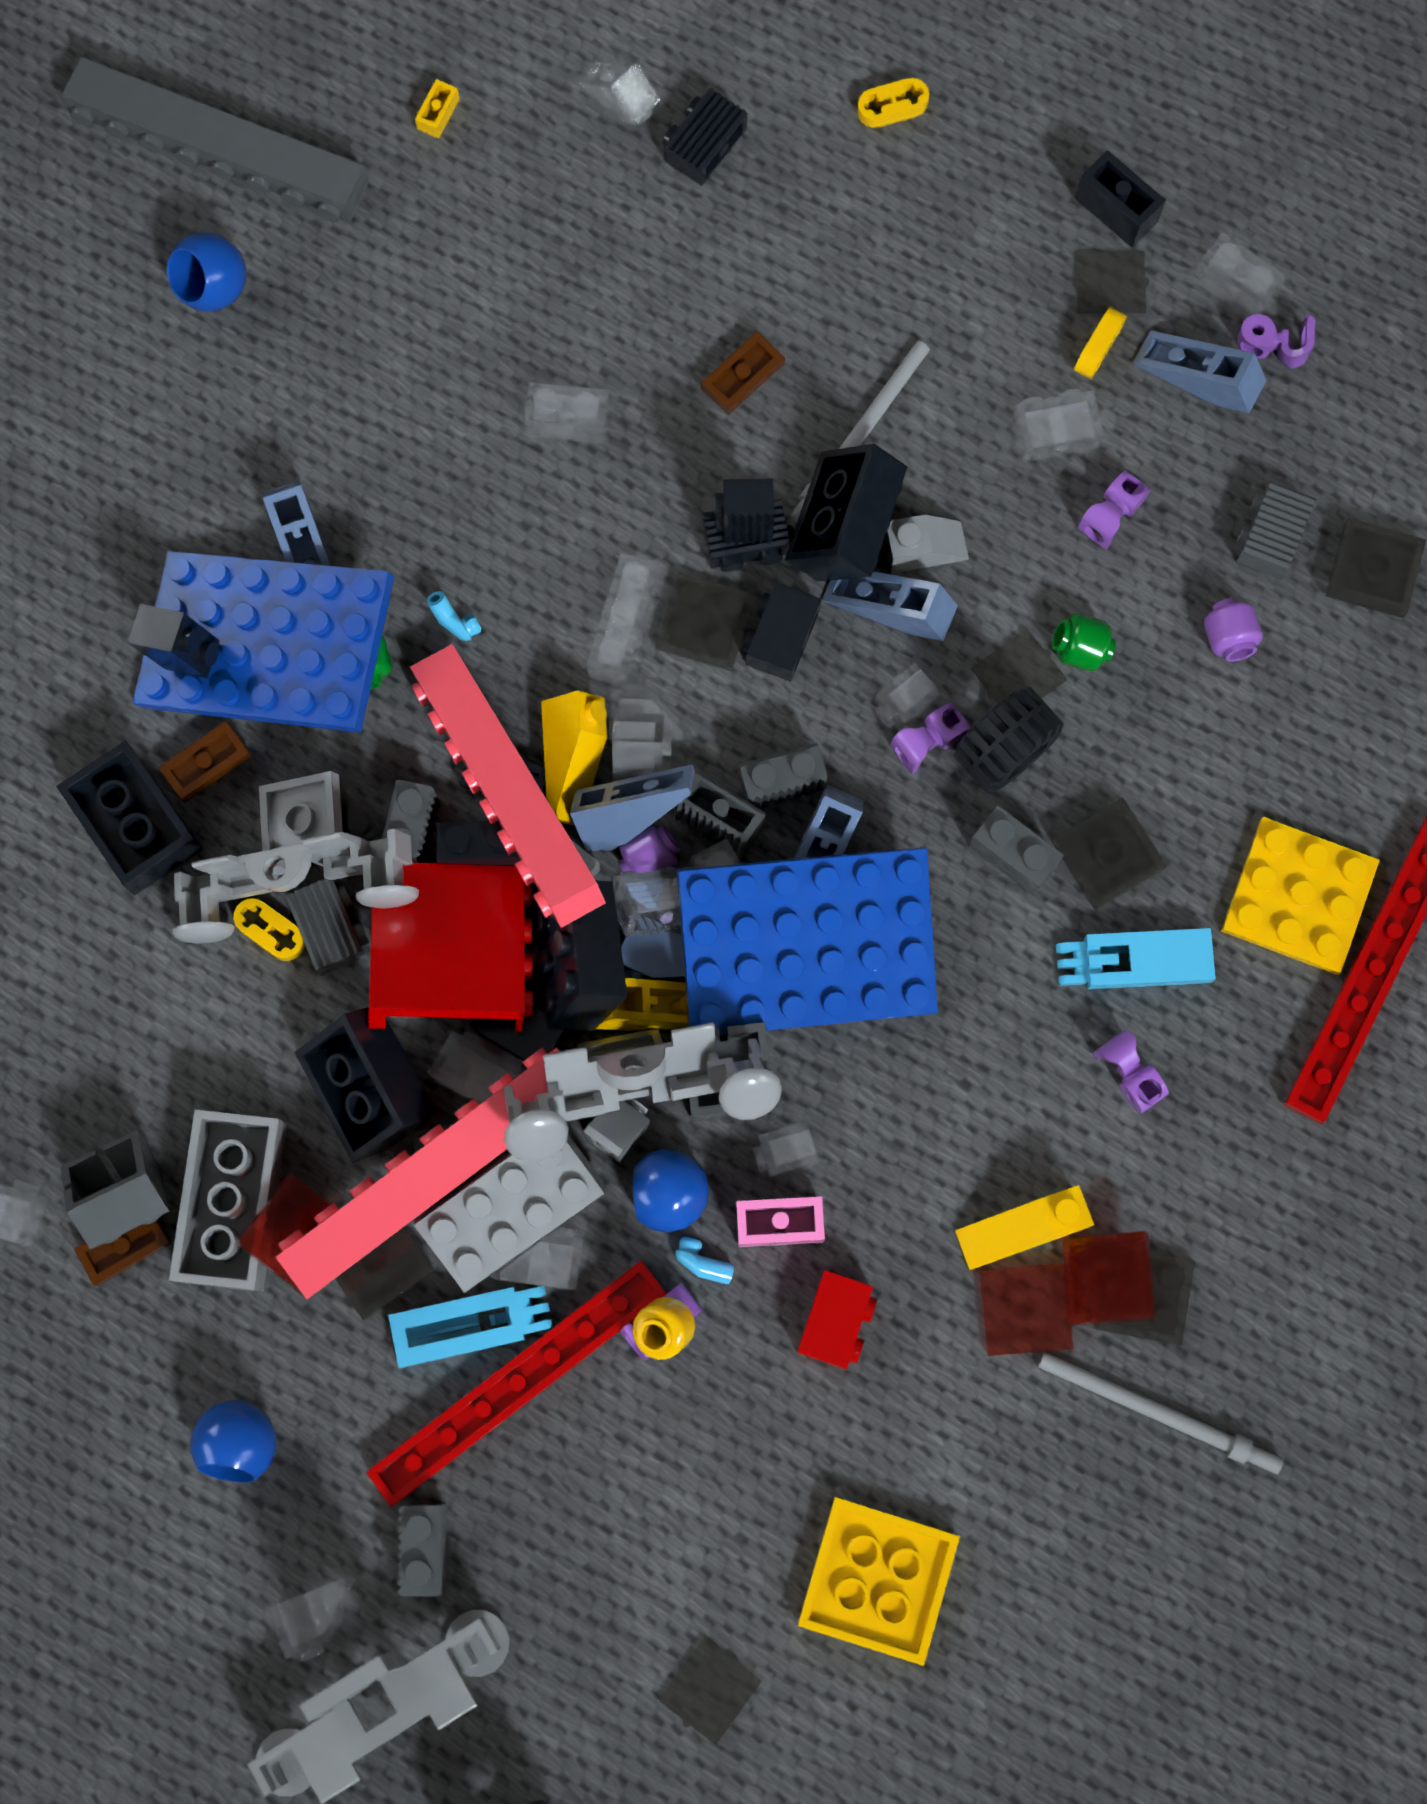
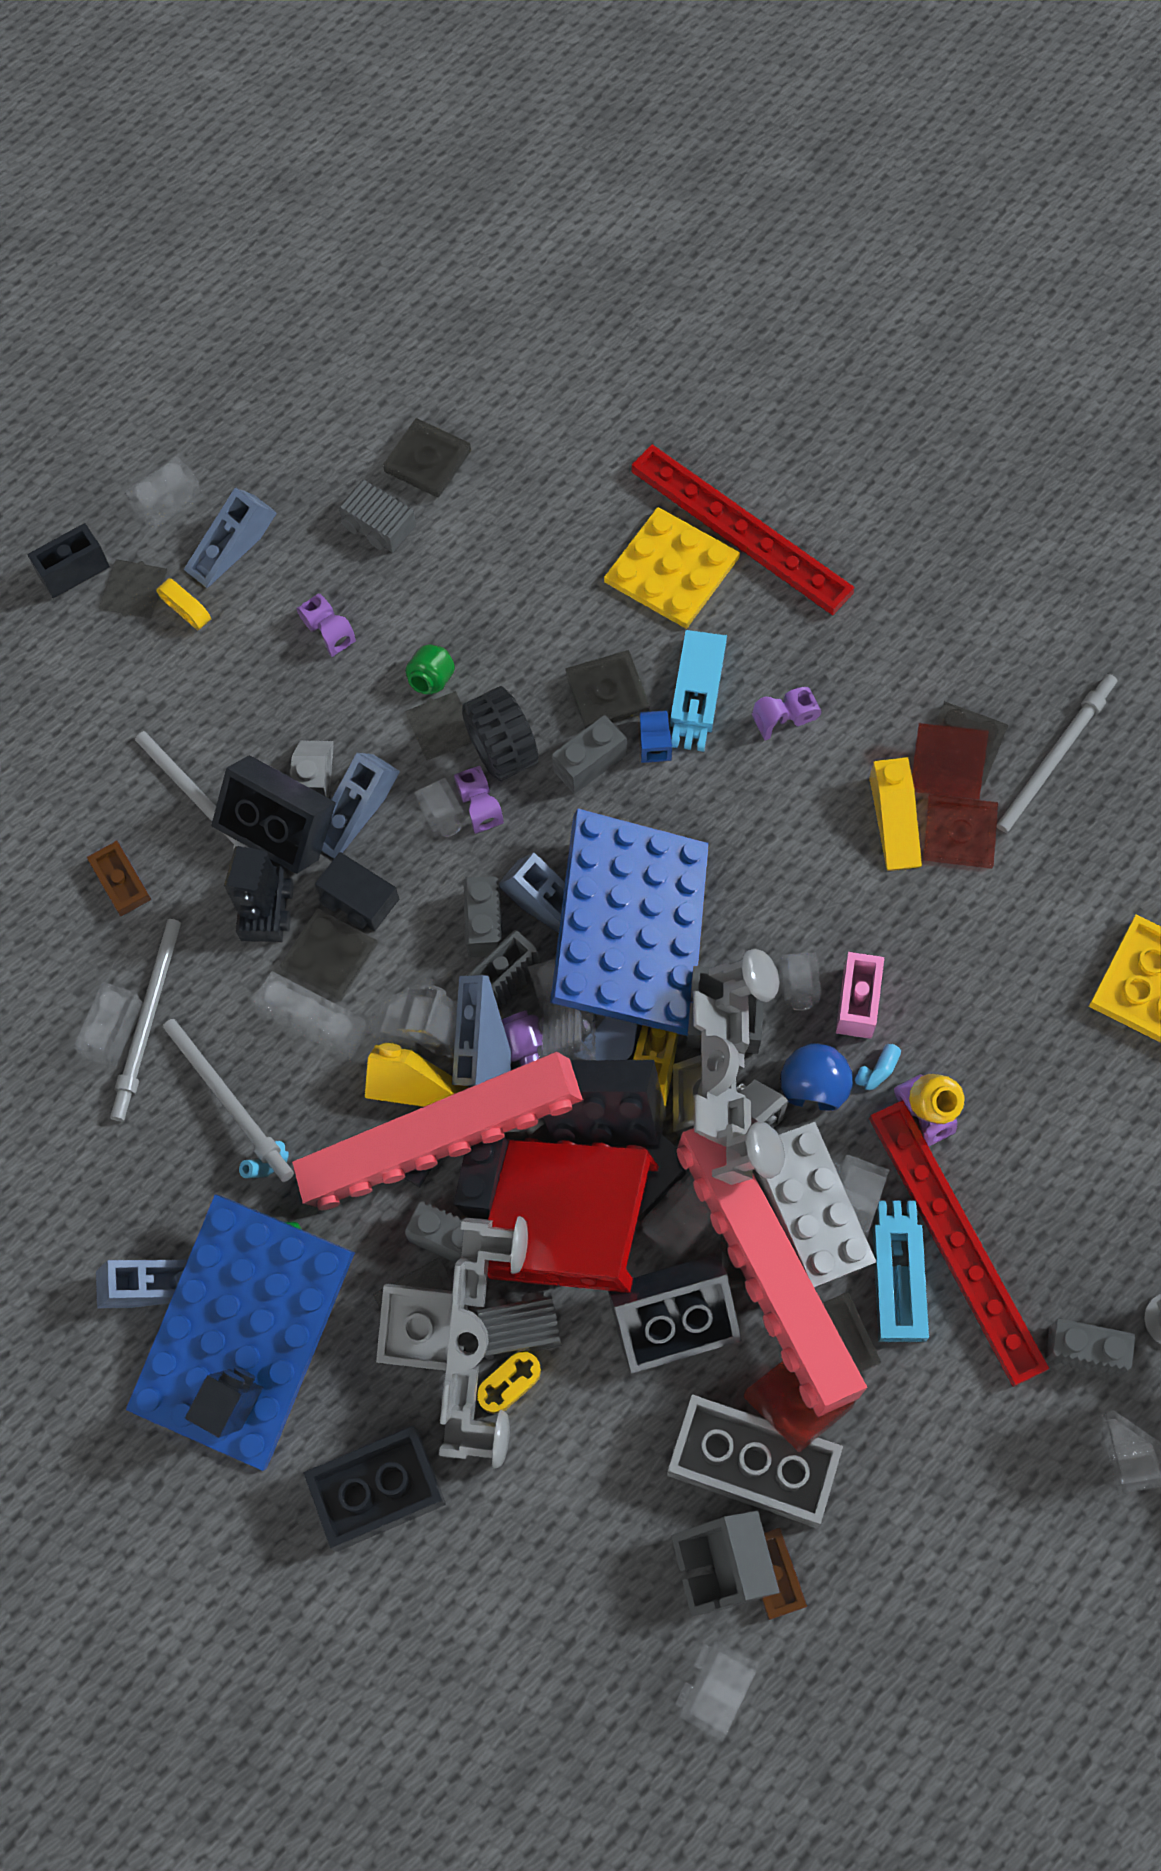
camera: 75 degrees left, 10 degrees down
(205, 761) = (337, 1412): reddish brown plate -> none
(233, 1442) = (973, 1495): blue helmet -> none
(463, 611) = (265, 1147): none -> light grey bar
(510, 451) = (127, 1082): none -> light grey bar
(836, 1320) = (947, 971): red brick -> none
(1057, 425) = (243, 649): clear brick -> none
(1061, 921) = (655, 736): none -> blue leg
(1233, 630) = (450, 562): medium lavender head -> none
(1260, 337) = (216, 490): medium lavender leg -> none

